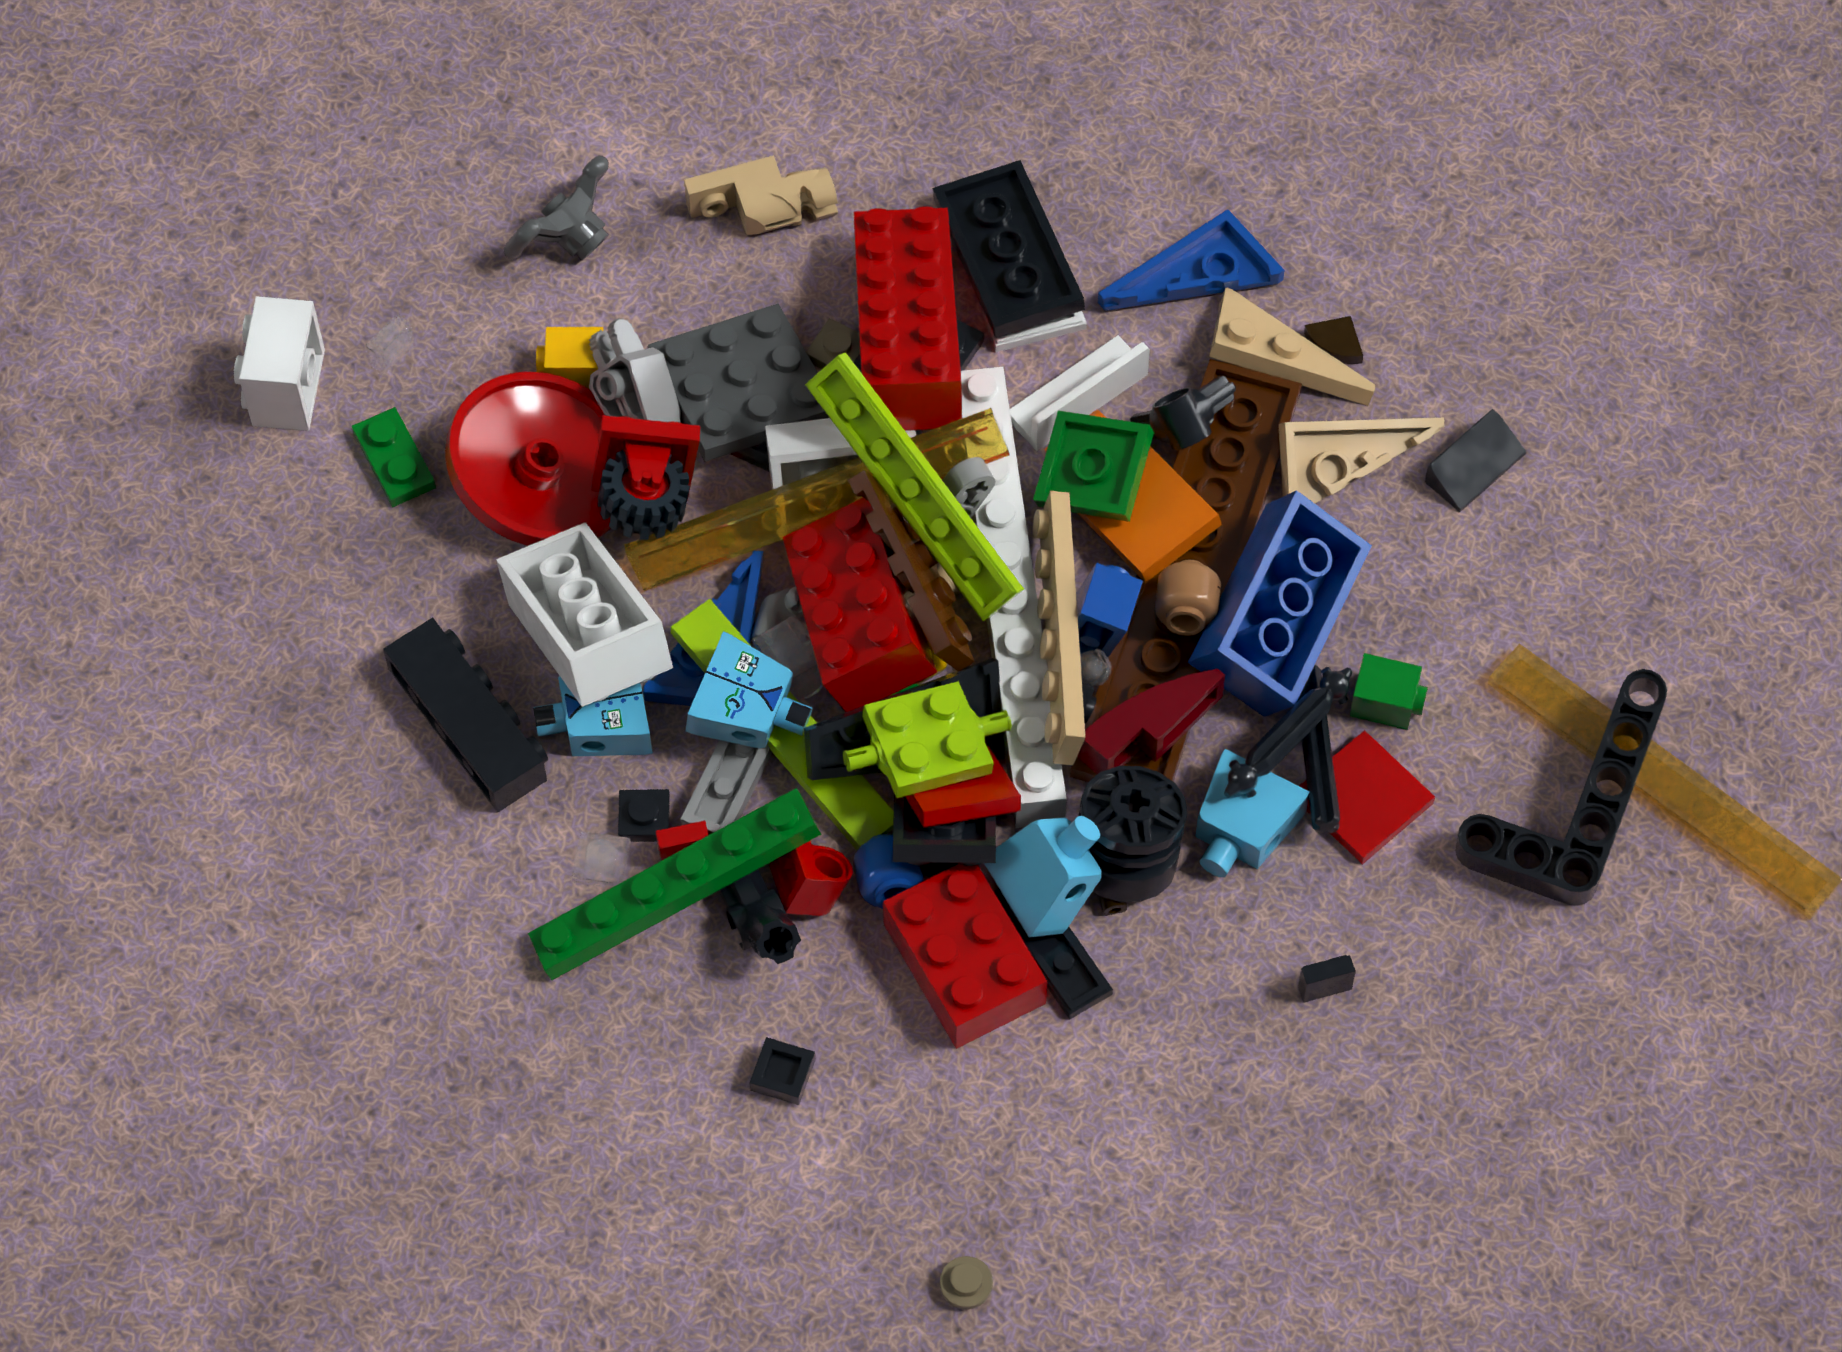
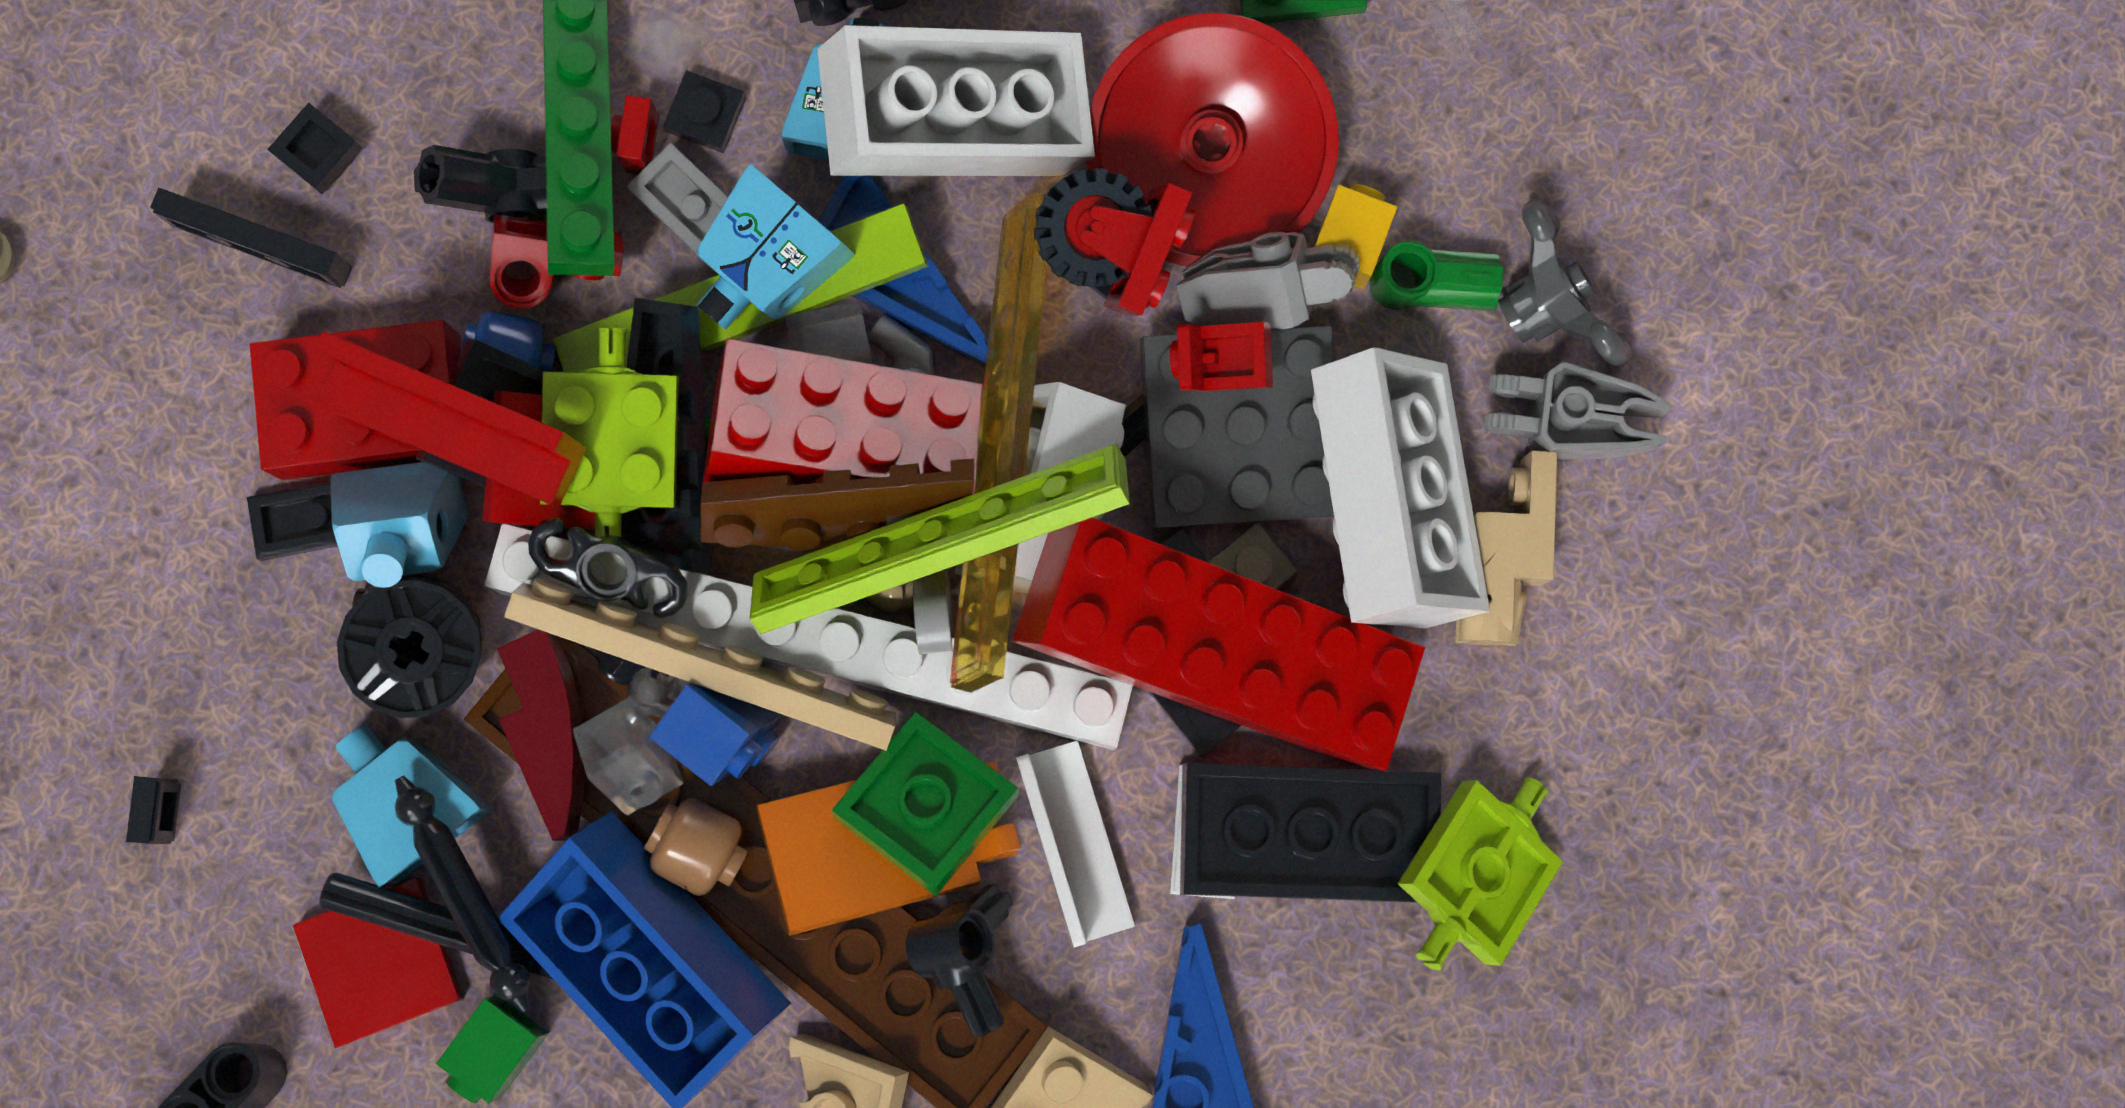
camera: 105 degrees right, 20 degrees up
(582, 291) = (1441, 279): none -> green piece
(652, 185) = (1578, 413): none -> light grey hinge
(704, 382) = (1222, 357): none -> red bracket
(753, 256) = (1398, 490): none -> white brick
(872, 1083) = (251, 238): none -> black tile
(963, 827) = (448, 421): none -> red fence
(989, 140) = (1481, 873): none -> lime plate
(1027, 723) = (576, 567): none -> black piece
(1146, 652) = (624, 759): none -> clear brick

